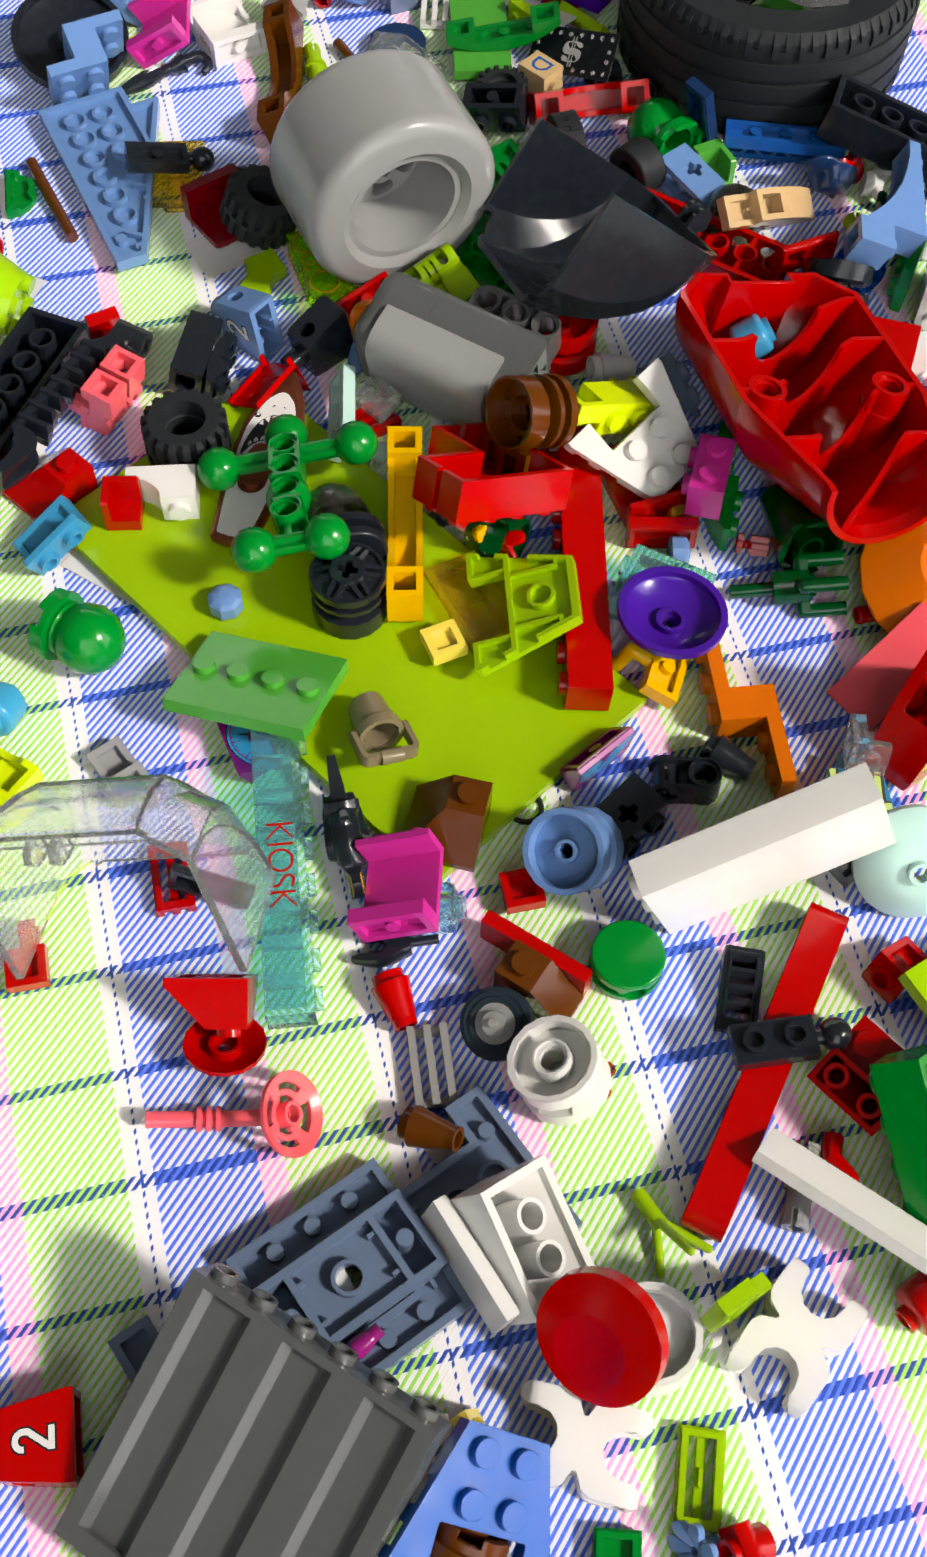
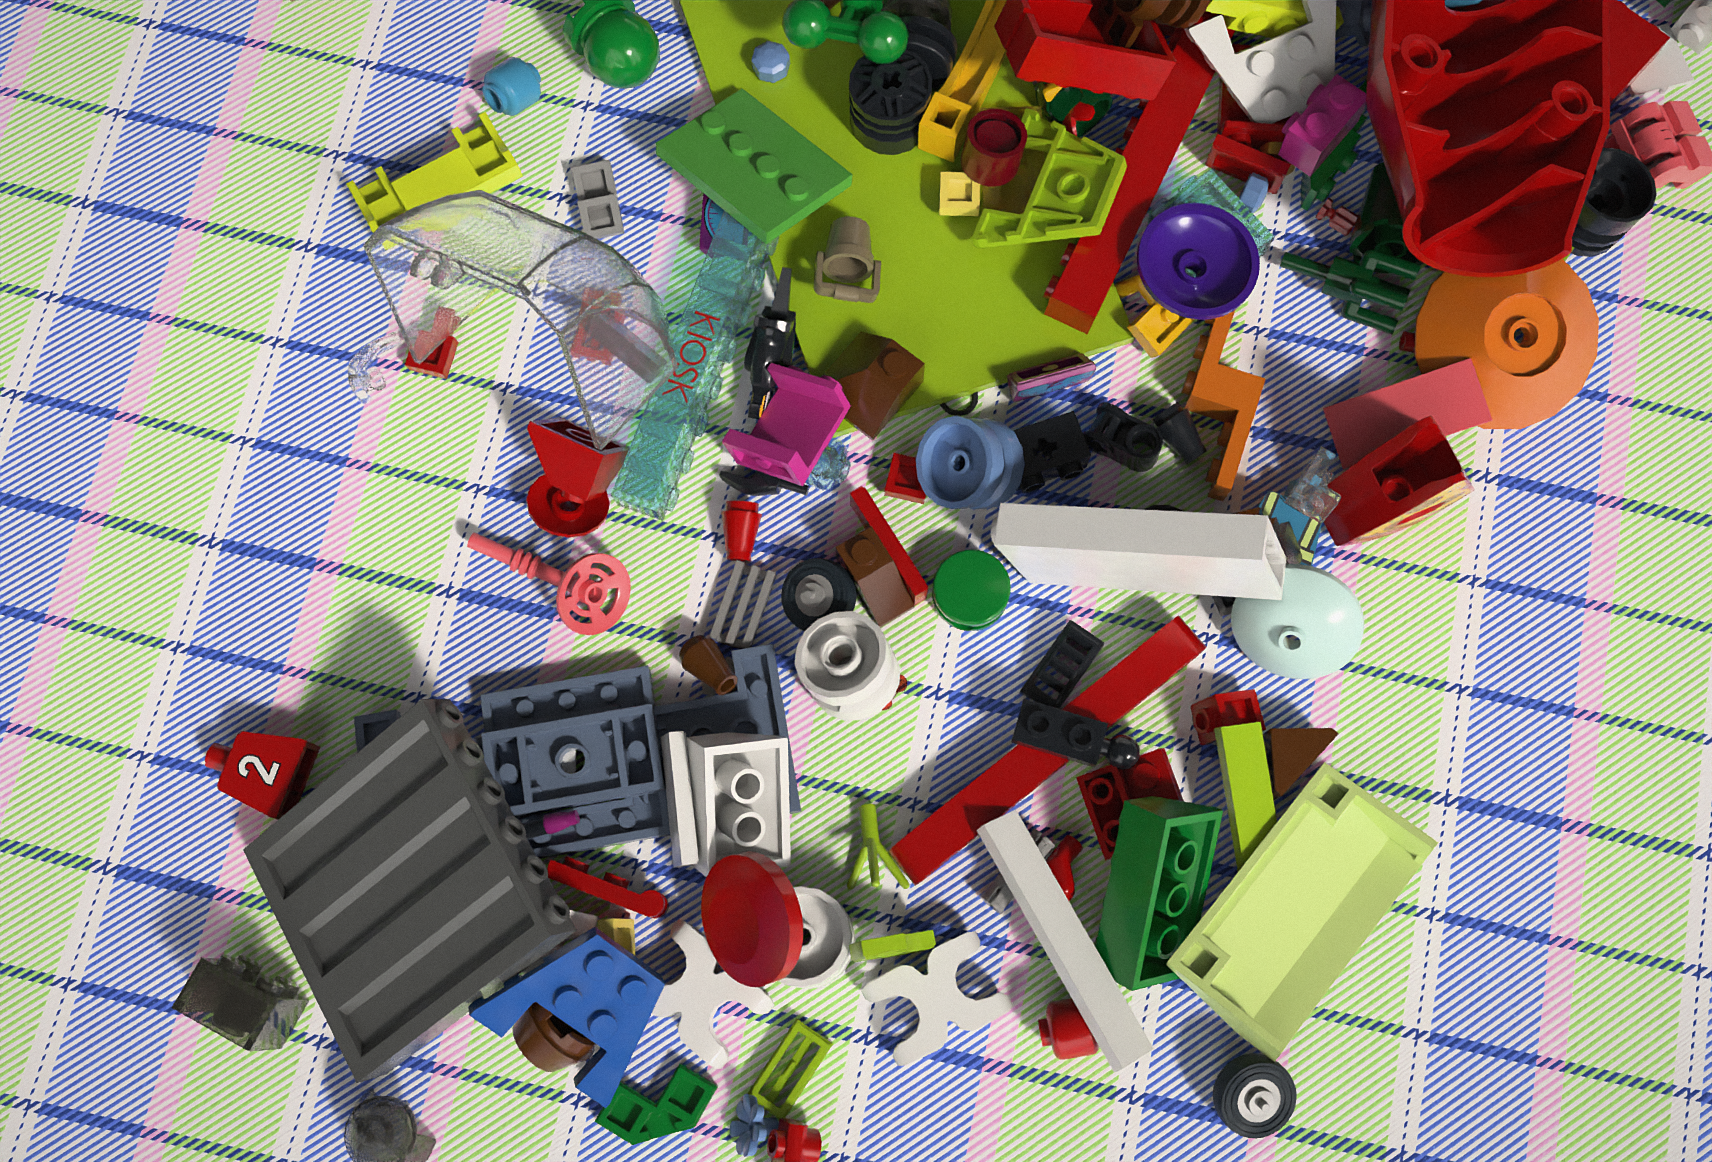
camera: 30 degrees right, 15 degrees up
(449, 1387) = (611, 888): none -> red plate
(457, 592) = (993, 147): none -> dark red piece

